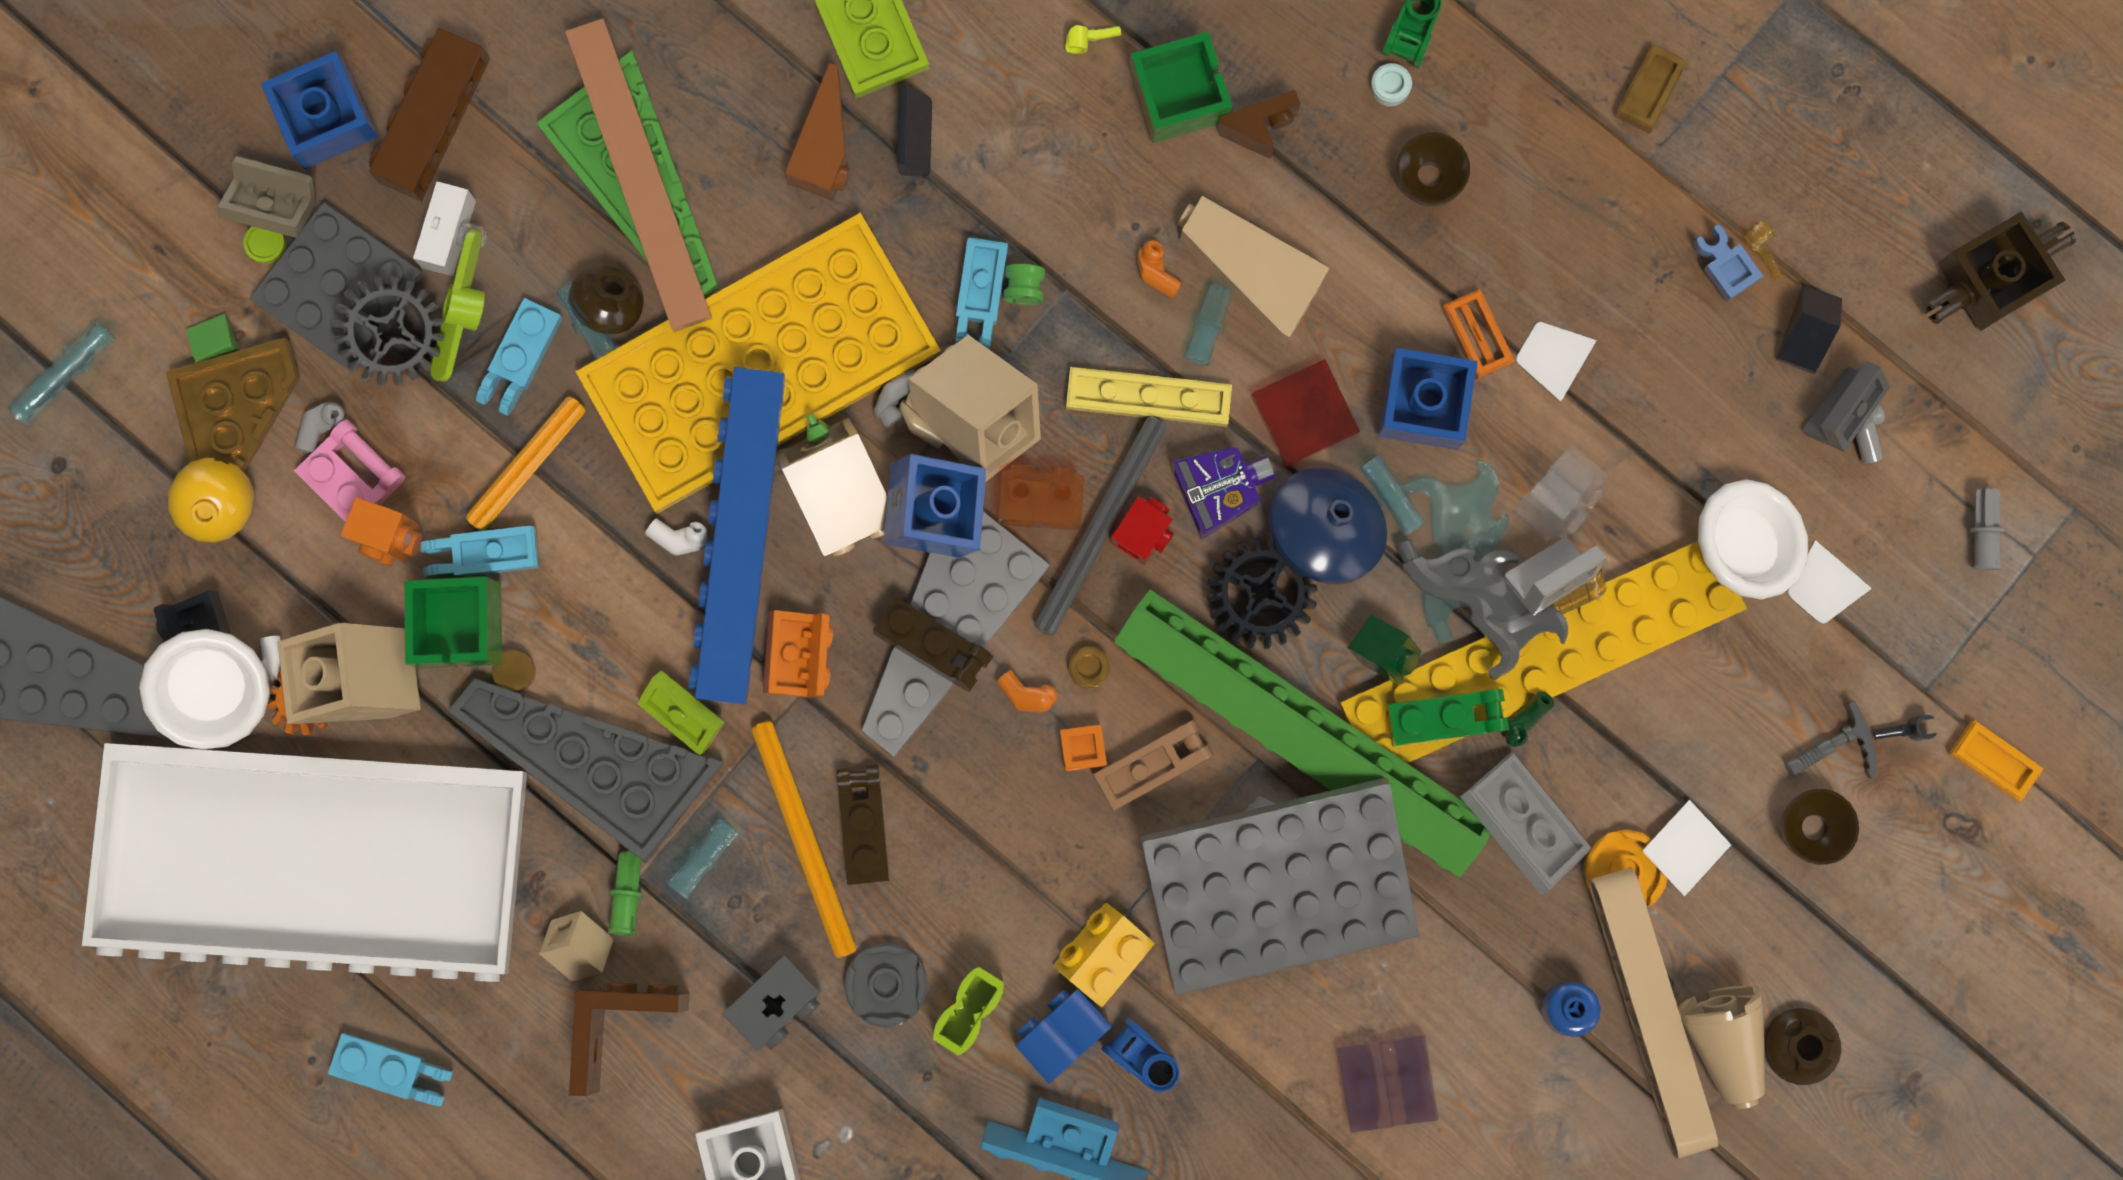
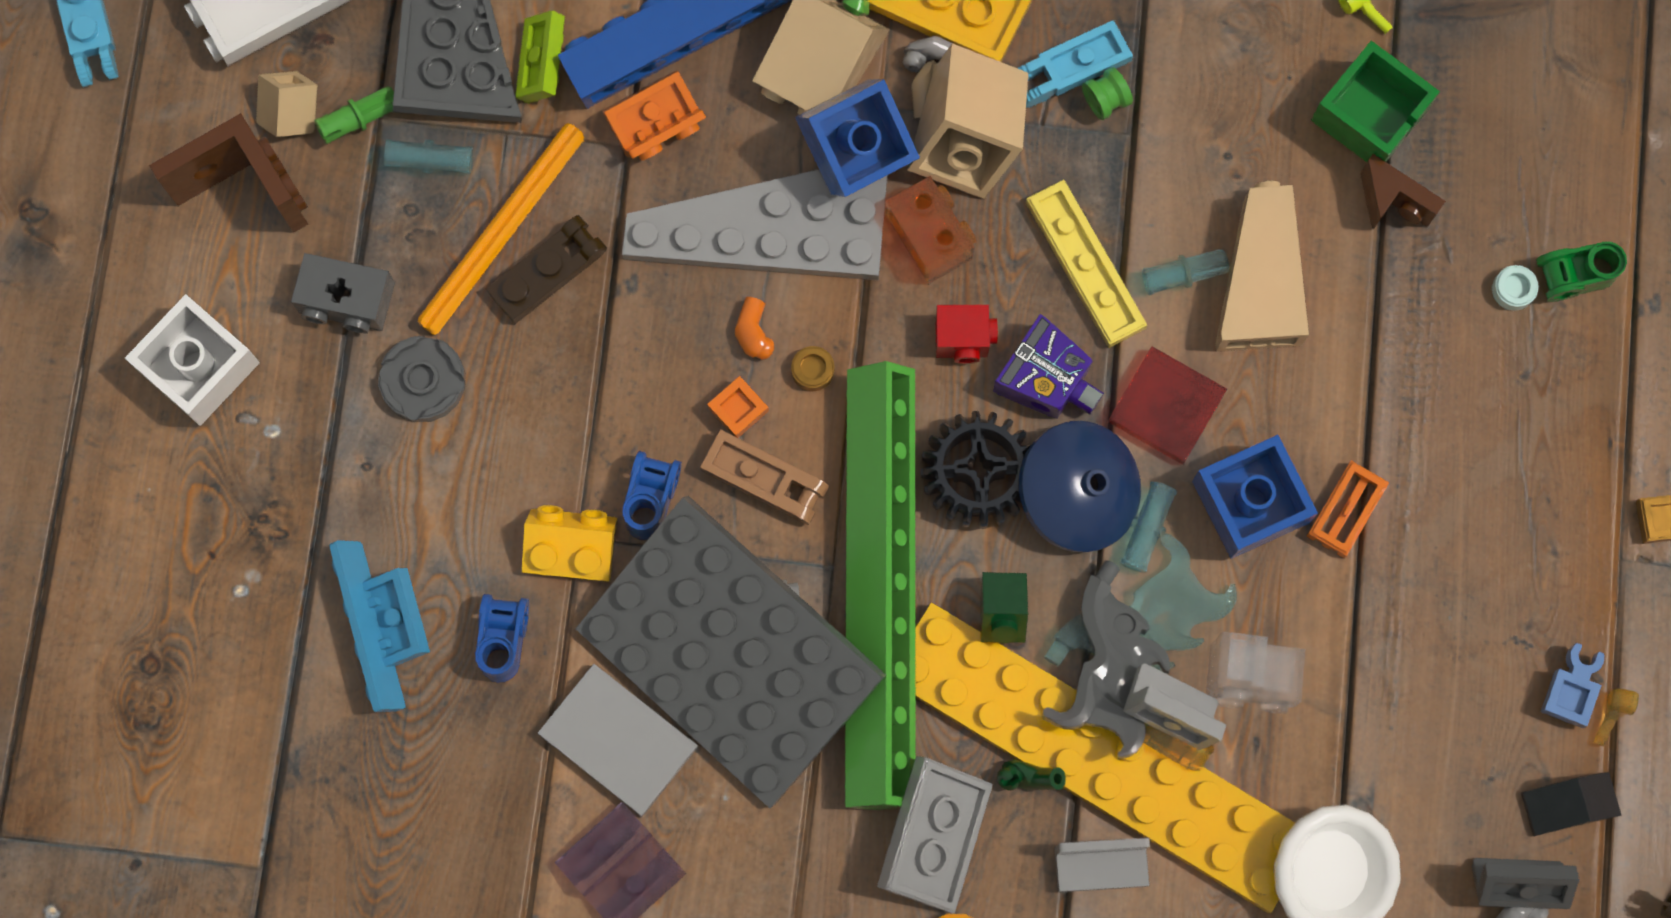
camera: 60 degrees right, 5 degrees down
(931, 643) = (739, 218): dark brown plate -> none
(963, 1020) = (430, 458): lime brick -> none
(1062, 1034) = (474, 552): blue brick -> none
(1100, 526) = (929, 296): dark grey axle -> none
(1105, 862) = (651, 487): none -> blue piece
(1153, 271) = (1199, 194): orange arm -> none
(1286, 1019) = (618, 740): none -> light grey tile
(1438, 151) = (1475, 352): dark brown piece -> none
(1446, 717) = (980, 700): green plate -> none
(1554, 356) = (1377, 591): white sticker -> none
(1628, 711) = (1102, 865): none -> light grey panel

